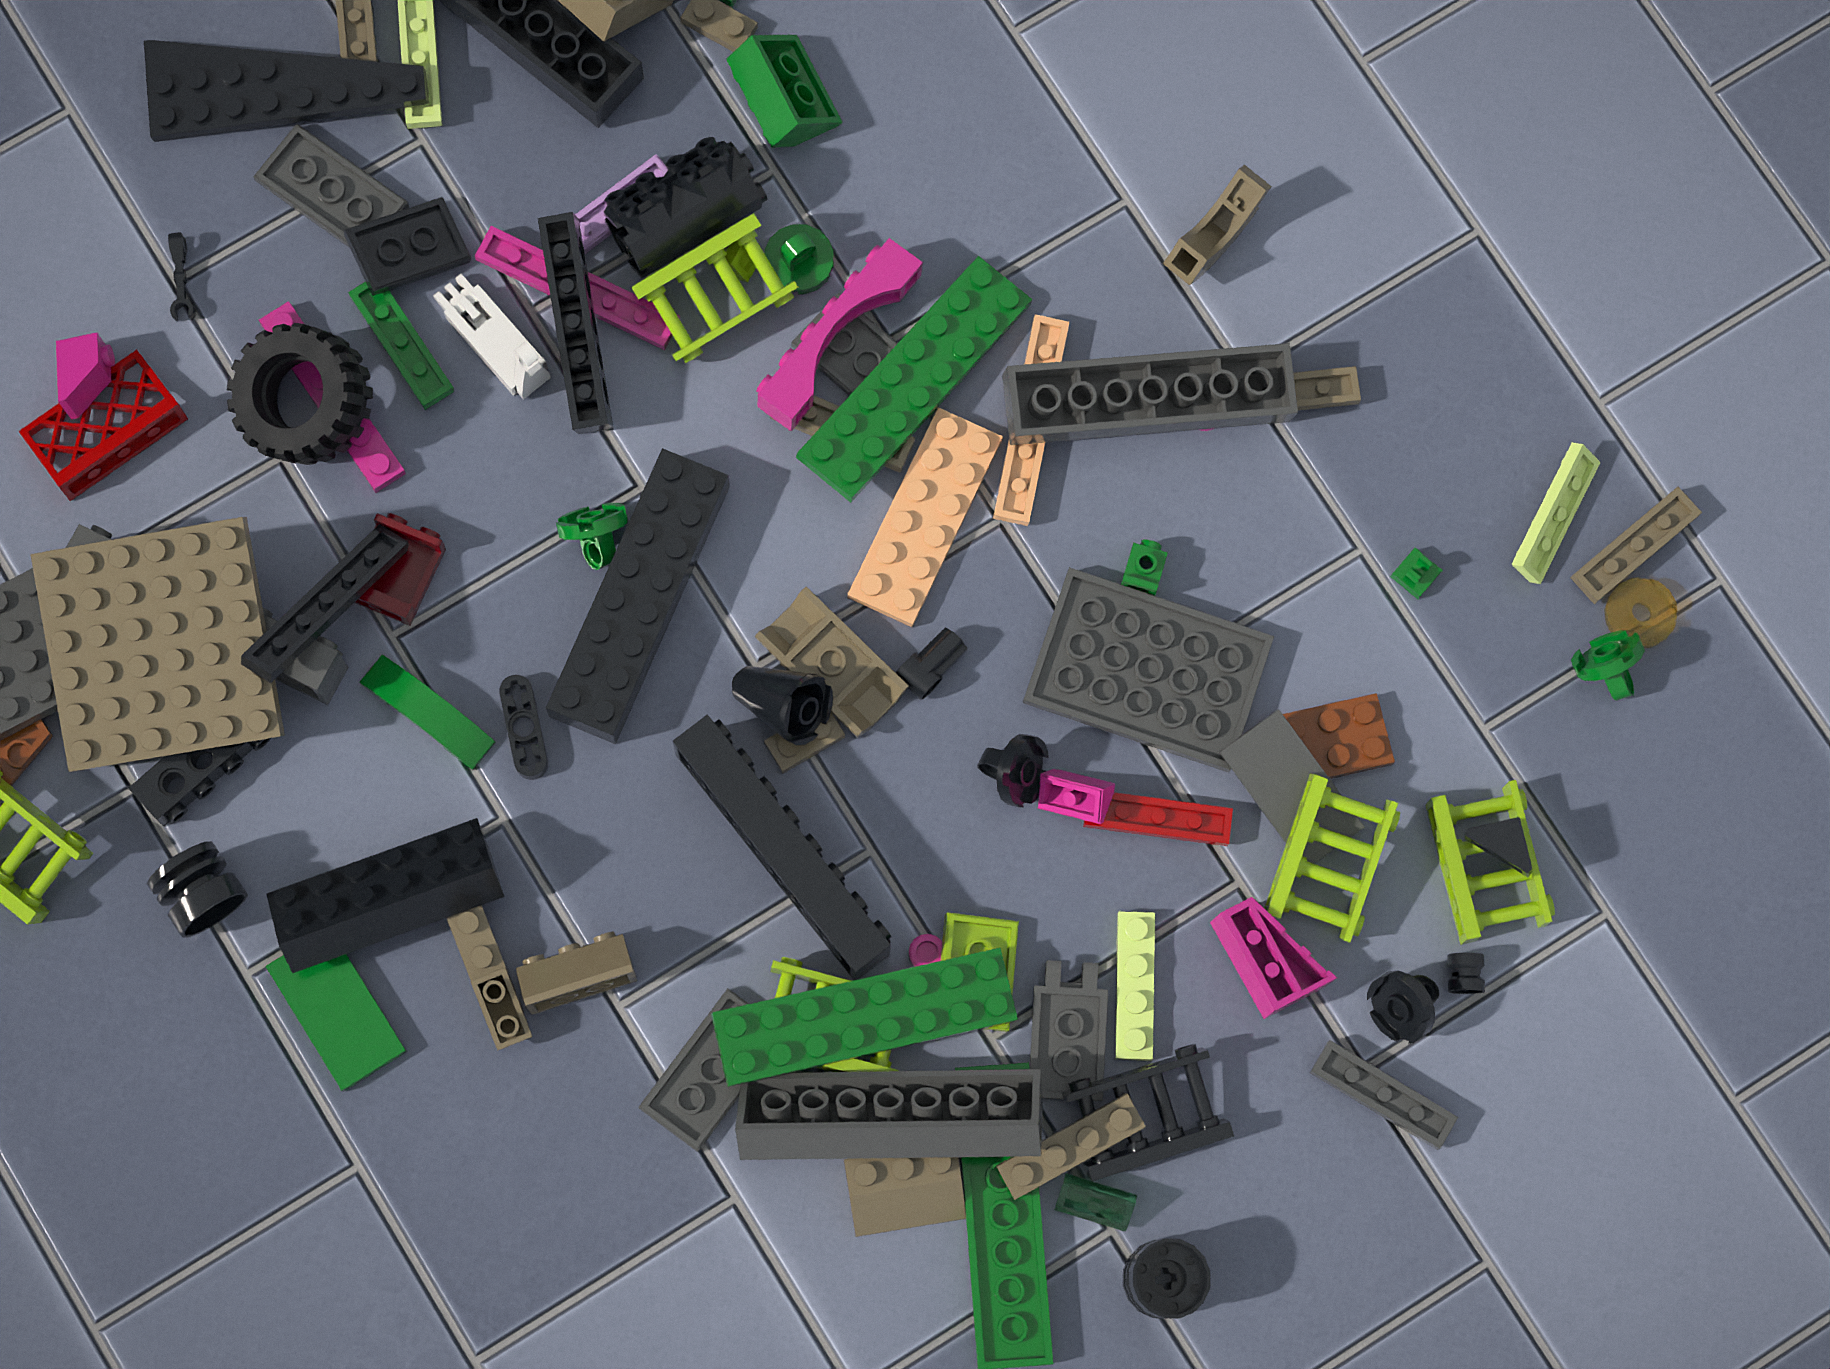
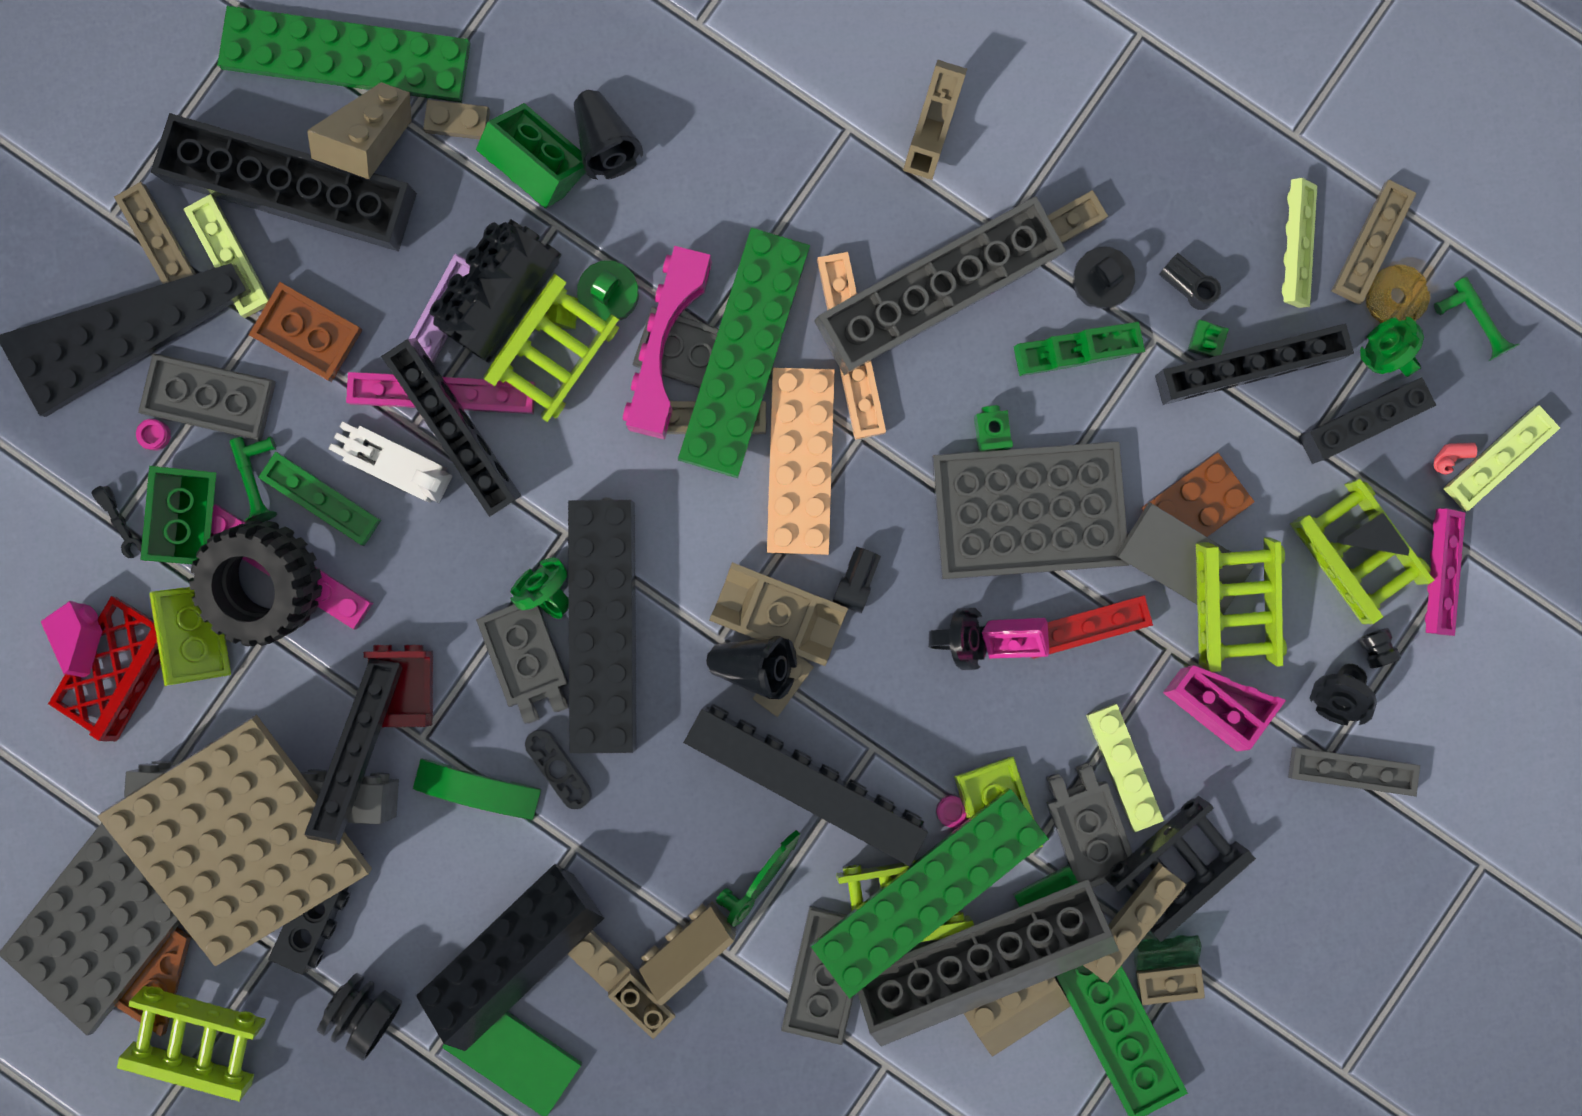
camera: 15 degrees left, 10 degrees up
(198, 423) = (185, 642): none -> lime tile
(246, 293) = (177, 514): none -> green slope
(257, 205) = (153, 434): none -> dark pink tile
(339, 268) = (241, 453): none -> green piece
(407, 246) = (288, 418): black tile -> none
(465, 168) = (305, 332): none -> dark orange plate
(540, 596) = (524, 659): none -> dark grey tile
(654, 955) = (740, 908): none -> green brick
(864, 102) = (604, 138): none -> black cone
(1084, 1239) = (1170, 984): none -> dark tan plate
(1188, 1281) = (1265, 999): black wheel -> none
(1273, 524) = (1079, 348): none -> green slope
(1331, 463) = (1103, 278): none -> black tile
(1420, 502) = (1187, 279): none -> black piece
(1451, 615) = (1254, 364): none -> black brick
(1550, 726) = (1367, 420): none -> black brick
(1571, 923) = (1445, 570): none -> dark pink plate
(1630, 802) = (1451, 453): none -> coral arm
(1682, 828) = (1501, 458): none -> yellowish green plate
(1716, 641) = (1467, 294): none -> green piece

